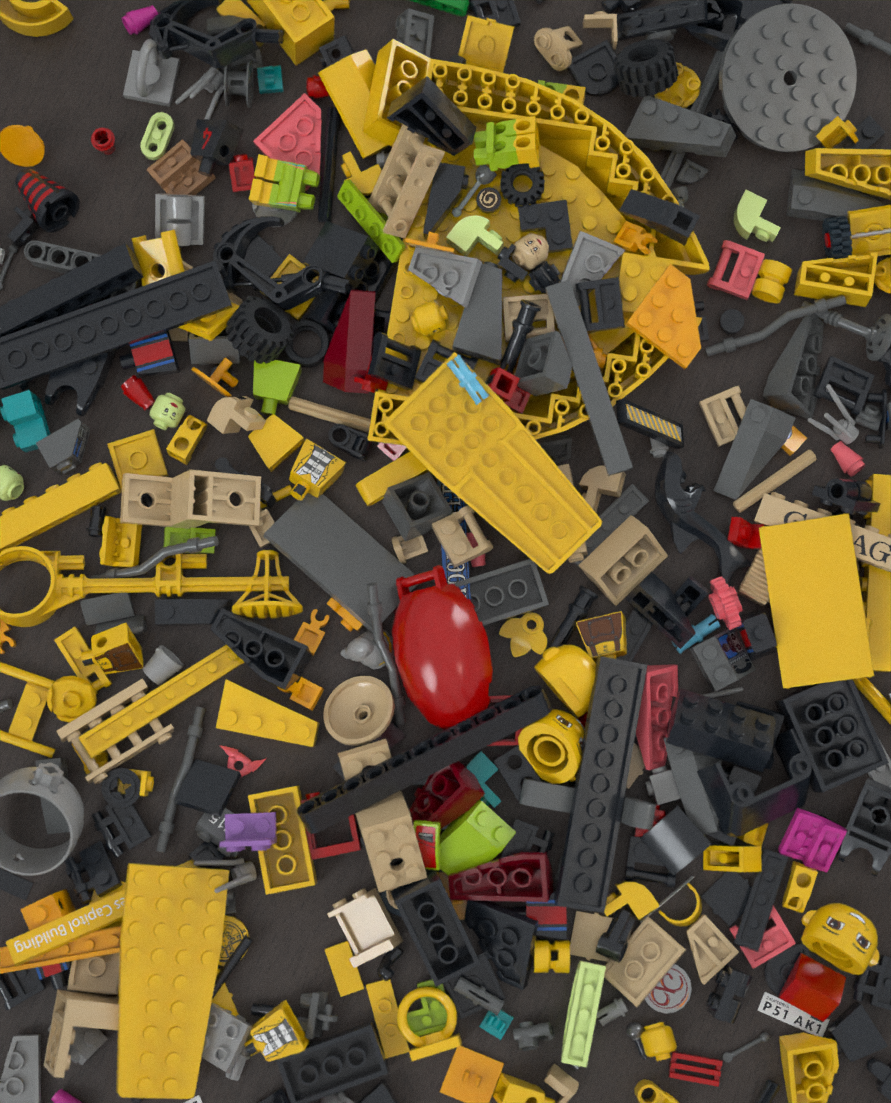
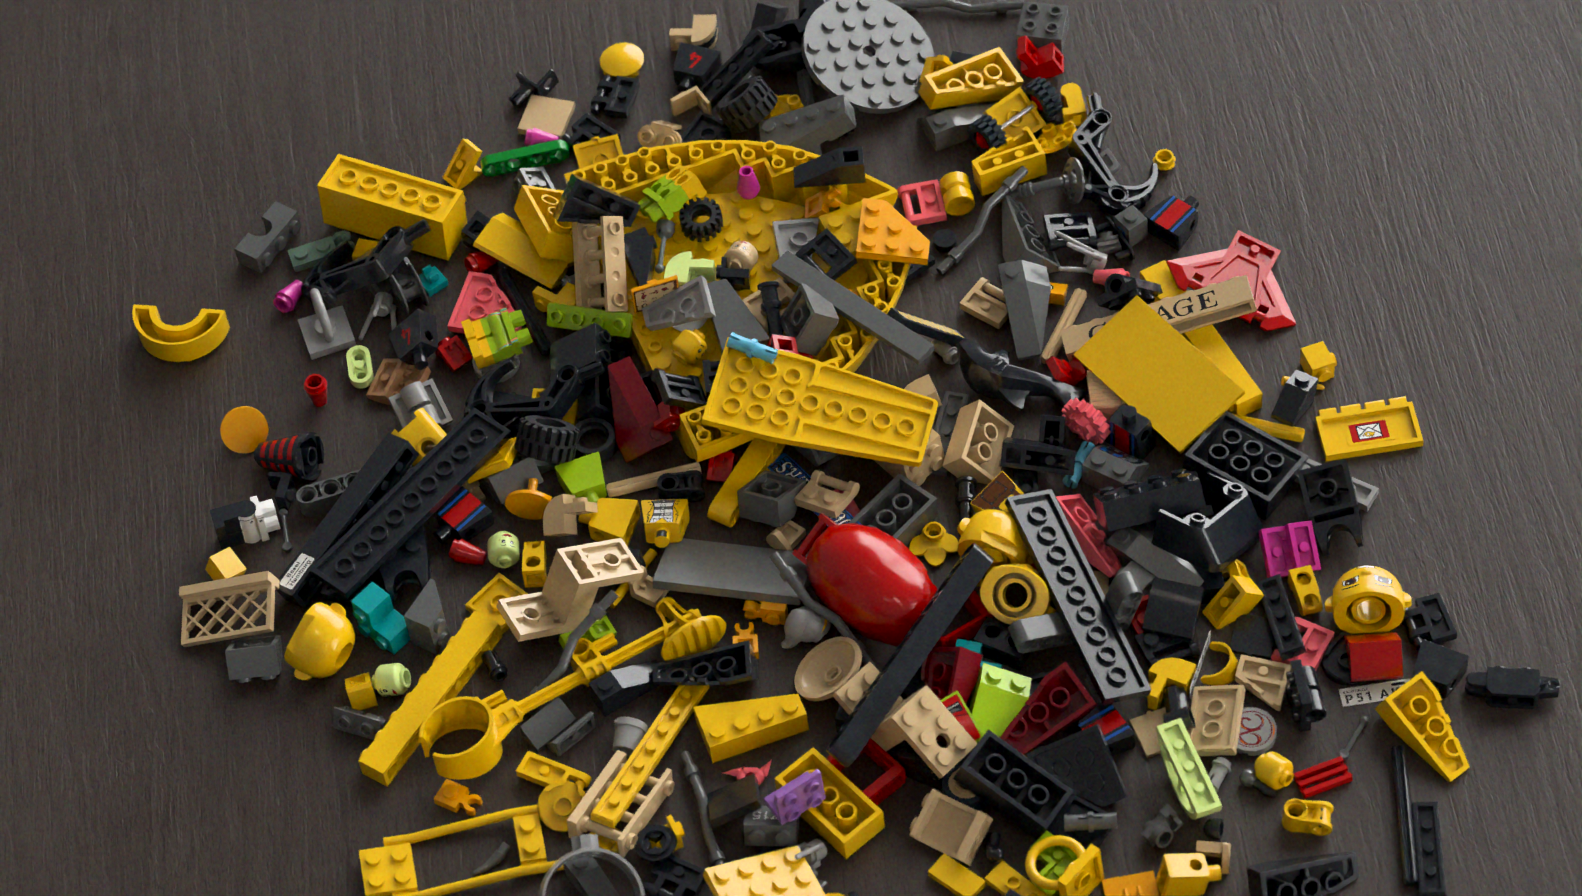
camera: 30 degrees left, 30 degrees down
(114, 650) = (577, 742): yellow torso -> none
(120, 543) = (526, 665): yellow bracket -> none
(304, 693) = (769, 687): light orange plate -> none
(488, 200) = (680, 244): tile -> none
(496, 1024) = (1122, 842): teal tile -> none
(542, 956) = (1135, 757): yellow wheel -> none
(543, 276) = (763, 269): black gear -> none
(552, 218) = (742, 229): black plate -> none
(583, 177) = (747, 183): none -> dark pink cone
(748, 220) = (908, 165): yellowish green brick -> none

